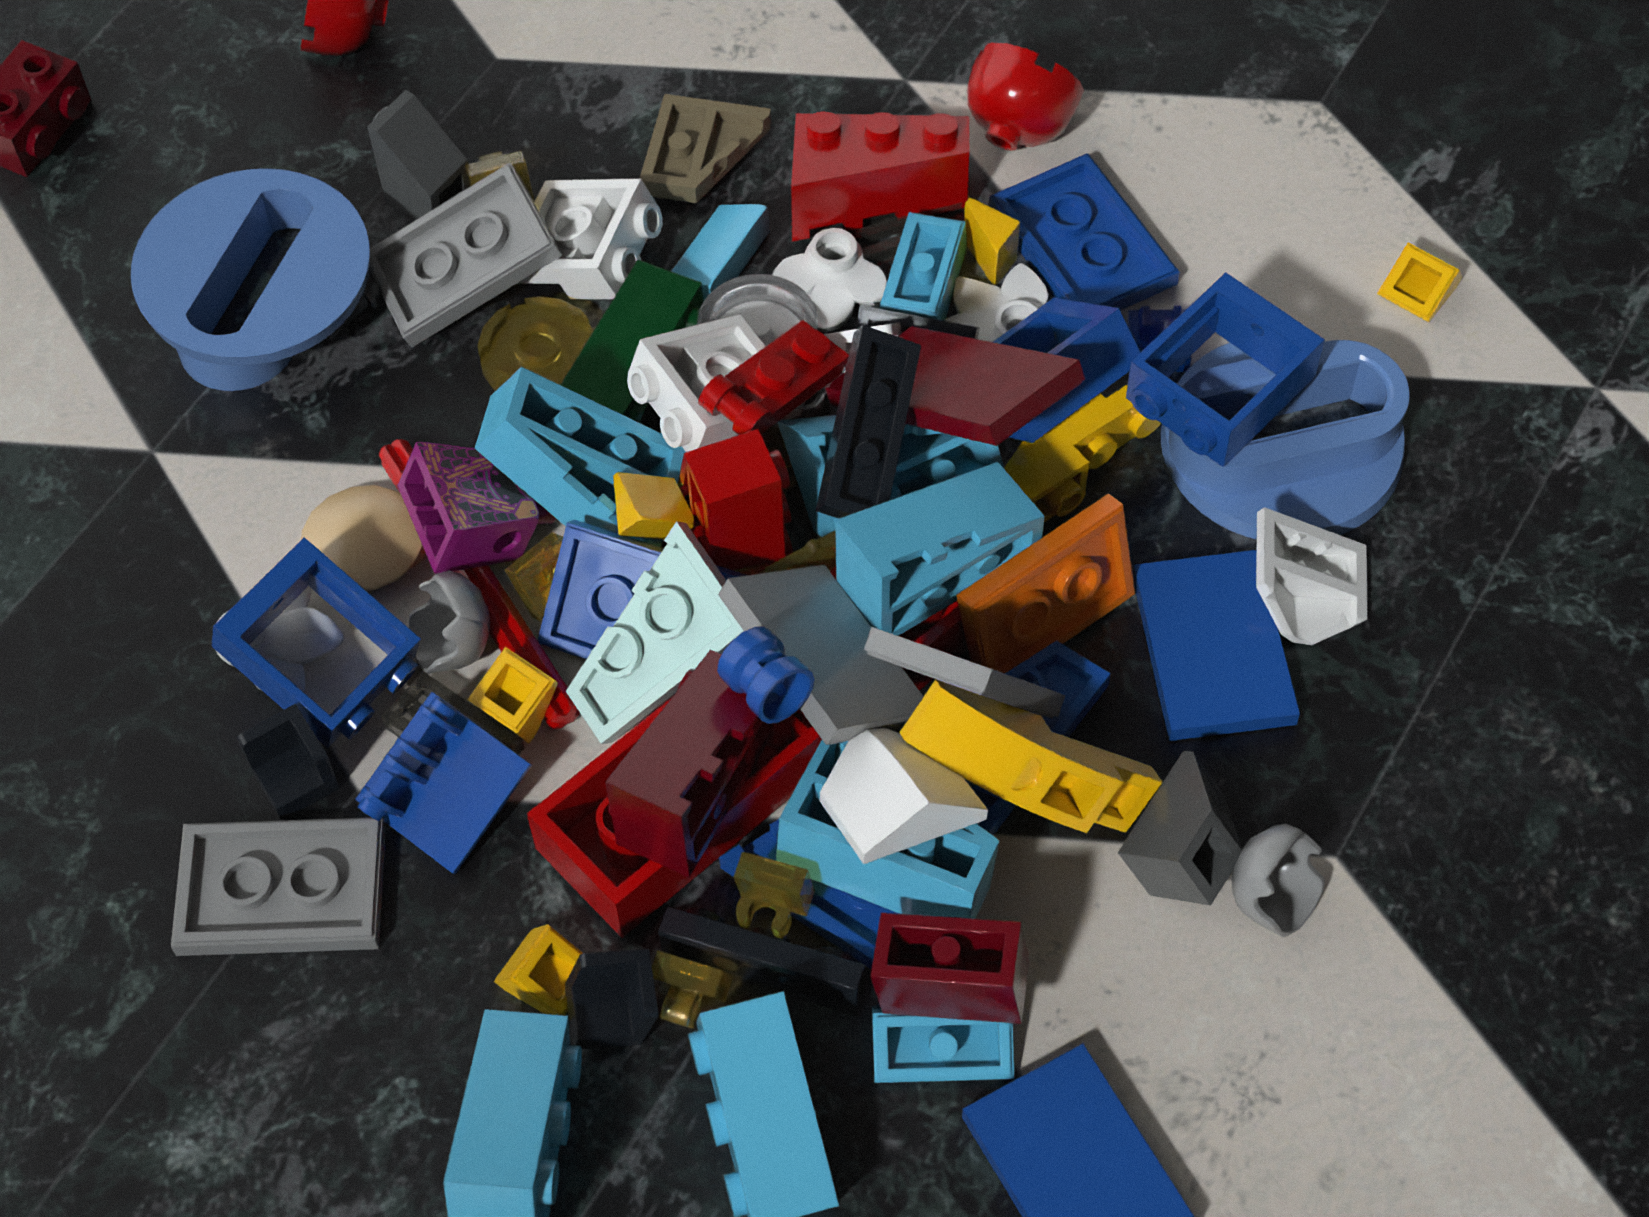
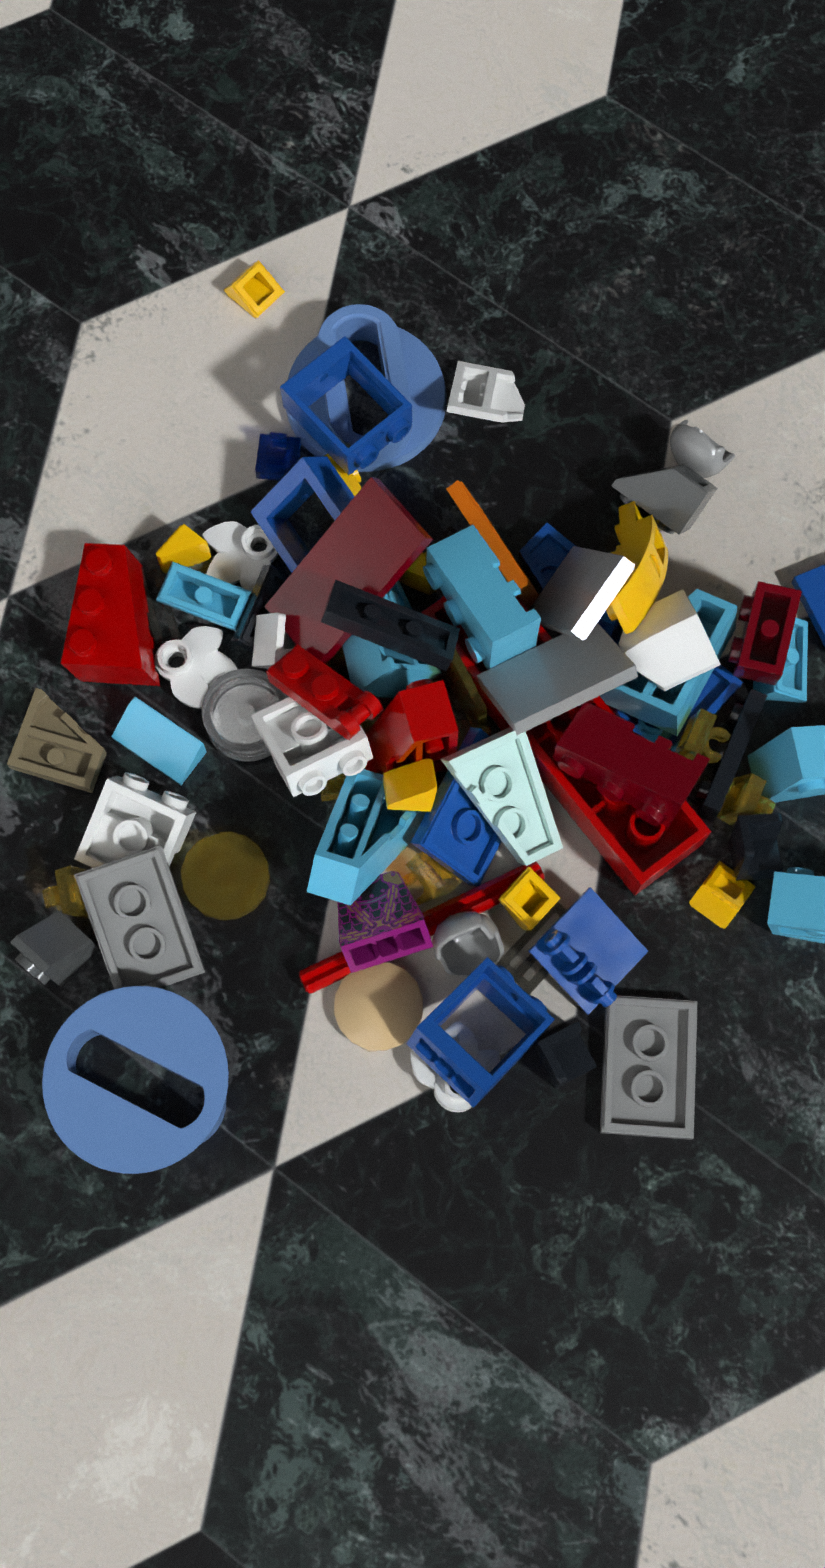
camera: 85 degrees left, 15 degrees up
(644, 306) = (250, 803): dark green brick -> none
(770, 679) = (598, 702): blue wheel -> none
(1020, 99) = (63, 512): red cylinder -> none
(1085, 237) = (187, 488): blue tile -> none
(1213, 646) = (523, 461): blue tile -> none

